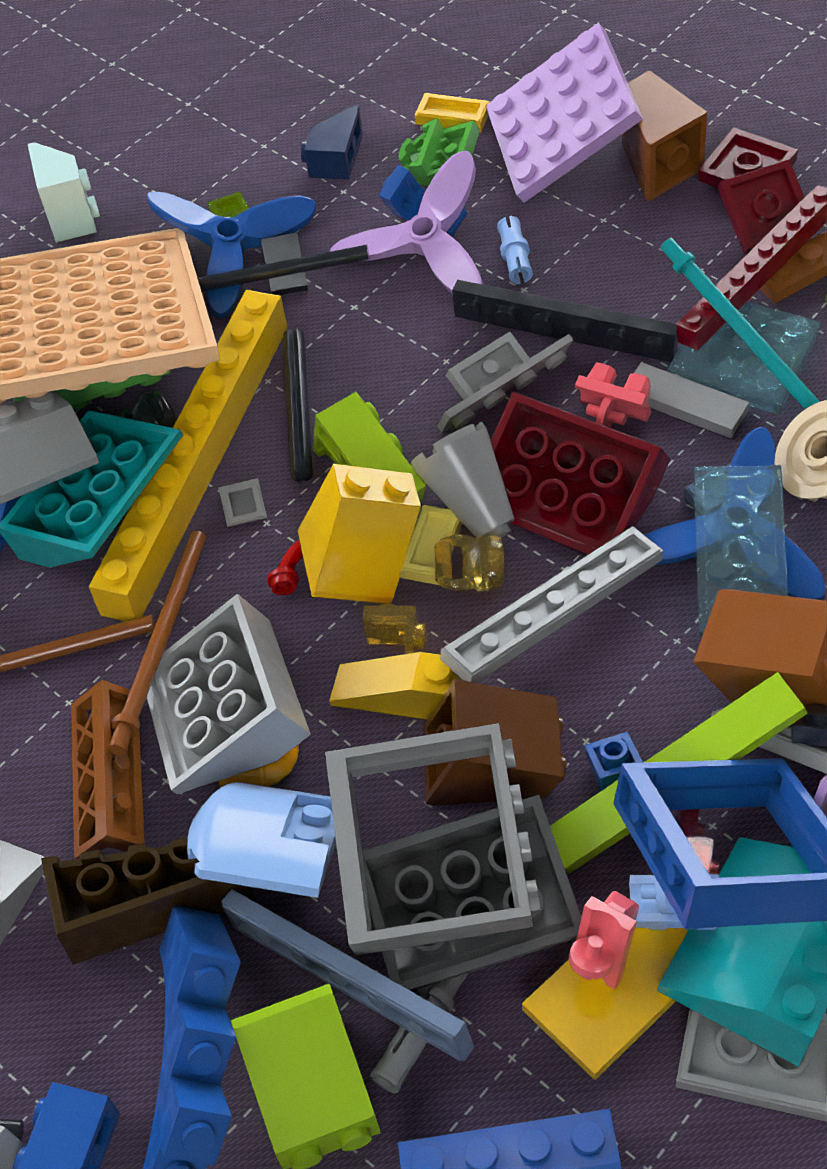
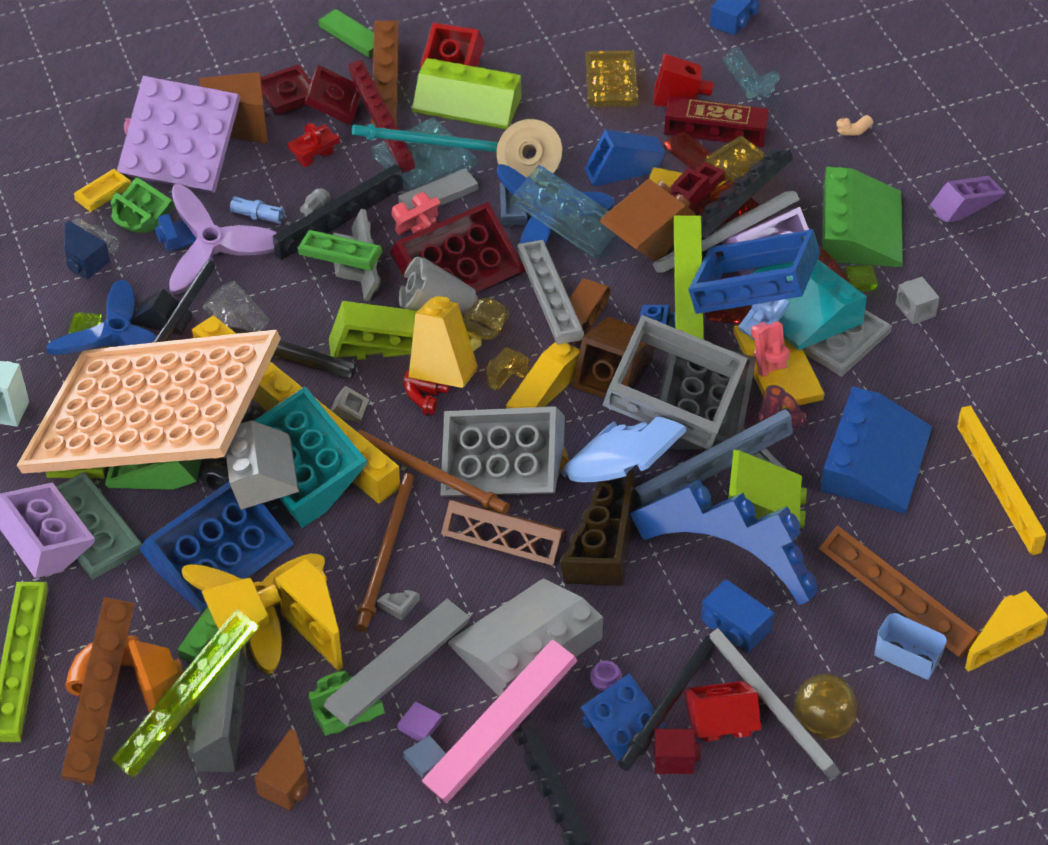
camera: 70 degrees left, 5 degrees down
(323, 318) = (235, 308): none -> clear slope
(369, 143) = (112, 241): none -> clear pin
(475, 352) = (340, 250): none -> bright green tile
(508, 1008) = (772, 404): none -> clear pink plant
(570, 664) = (589, 302): none -> dark orange beam
(583, 292) = (315, 200): none -> light grey axle
(653, 229) = (315, 141): none -> red hips

